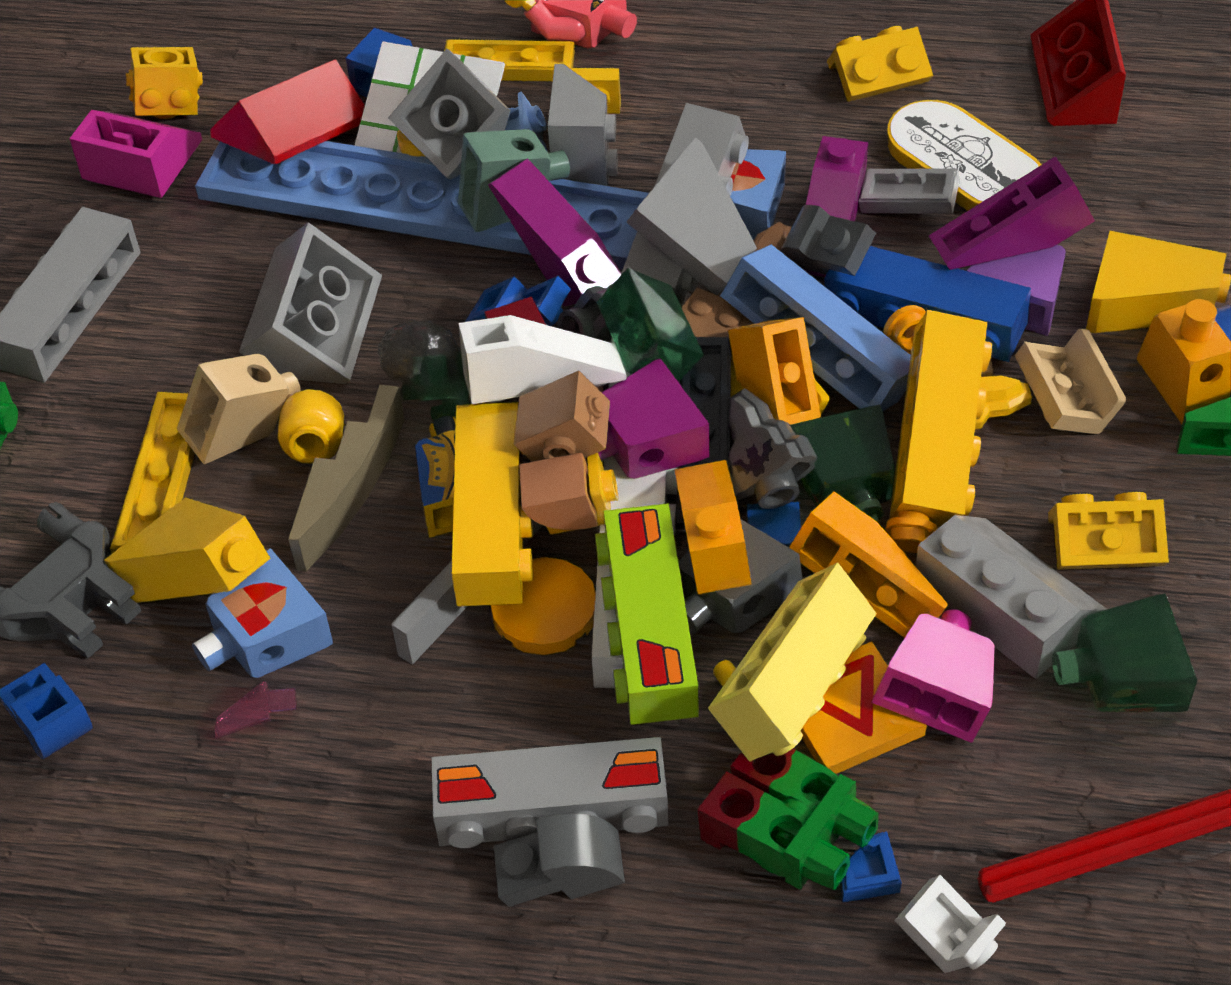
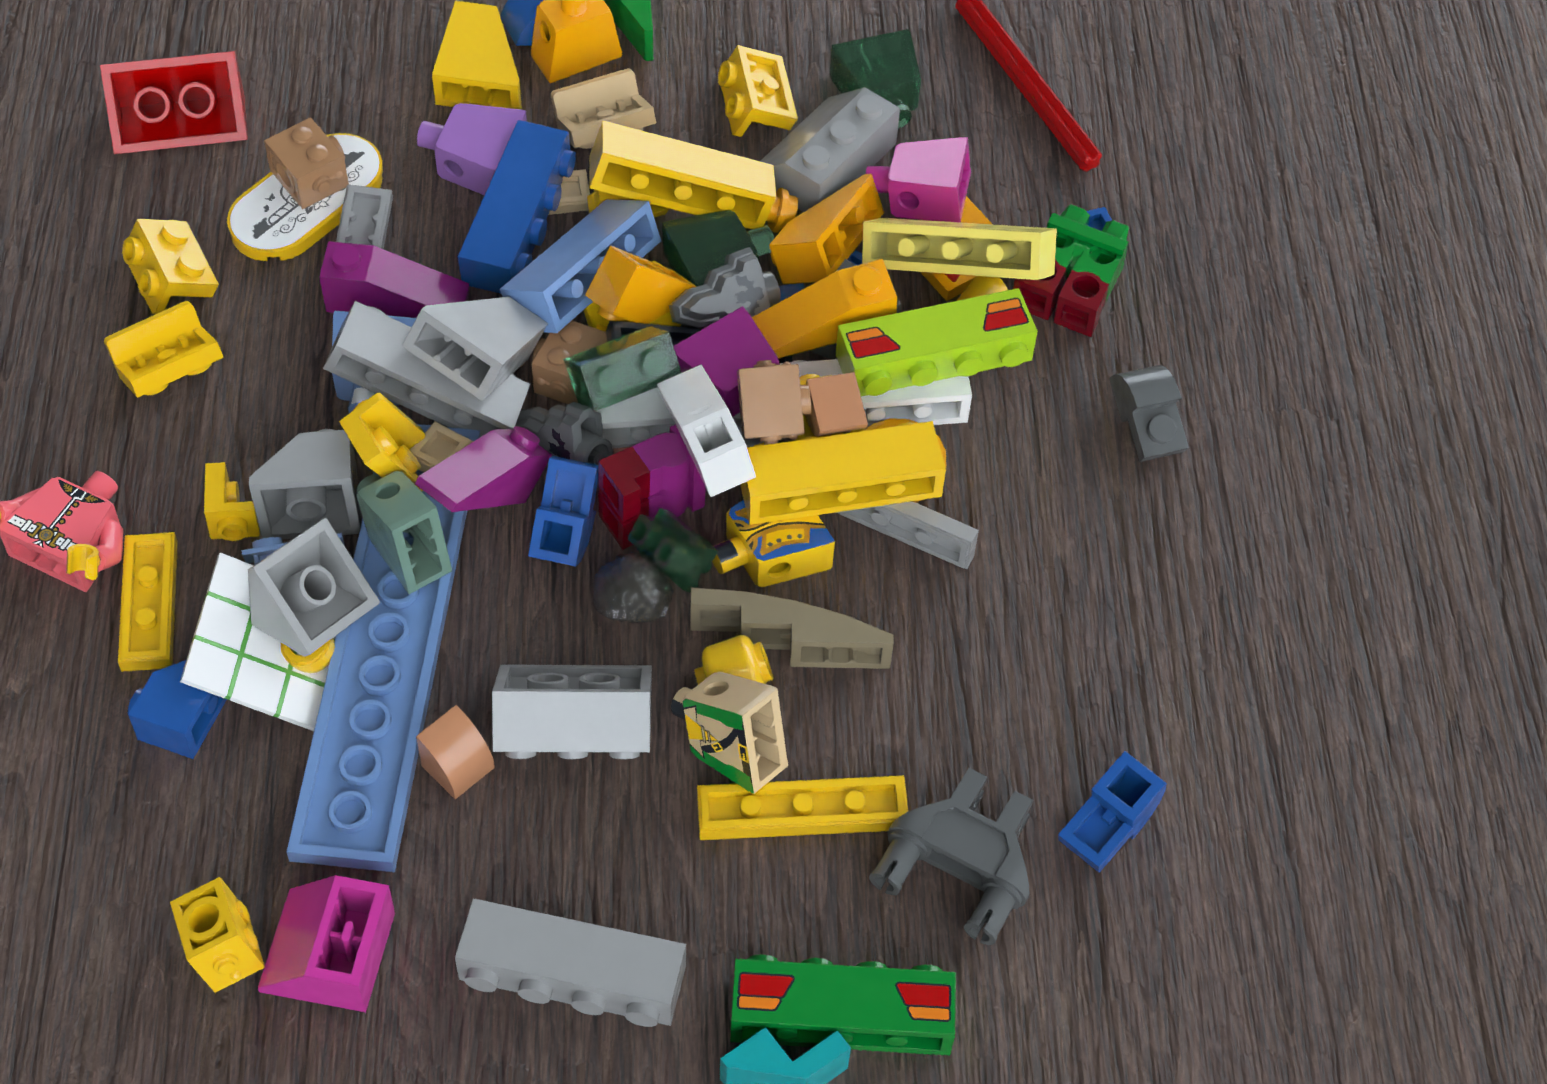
camera: 105 degrees left, 5 degrees up
(189, 553) = (923, 719): yellow slope -> none
(255, 709) = (1056, 659): clear pink bar -> none
(263, 622) = (968, 664): medium blue torso -> none
(283, 217) = (454, 752): none -> nougat brick
(292, 115) = (278, 781): slope -> none
(507, 790) = (1092, 424): light grey brick -> none
(589, 158) = (384, 436): none -> yellow bracket
(611, 225) = (438, 445): none -> tan tile
(768, 59) = (162, 350): none -> yellow bracket
(827, 242) = (472, 262): dark grey brick -> none
(902, 324) = (566, 207): light orange plate -> none
(949, 927) = (1140, 171): white bracket -> none
(985, 138) = (307, 162): none -> medium nougat head
(1017, 220) = (448, 122): magenta slope -> none

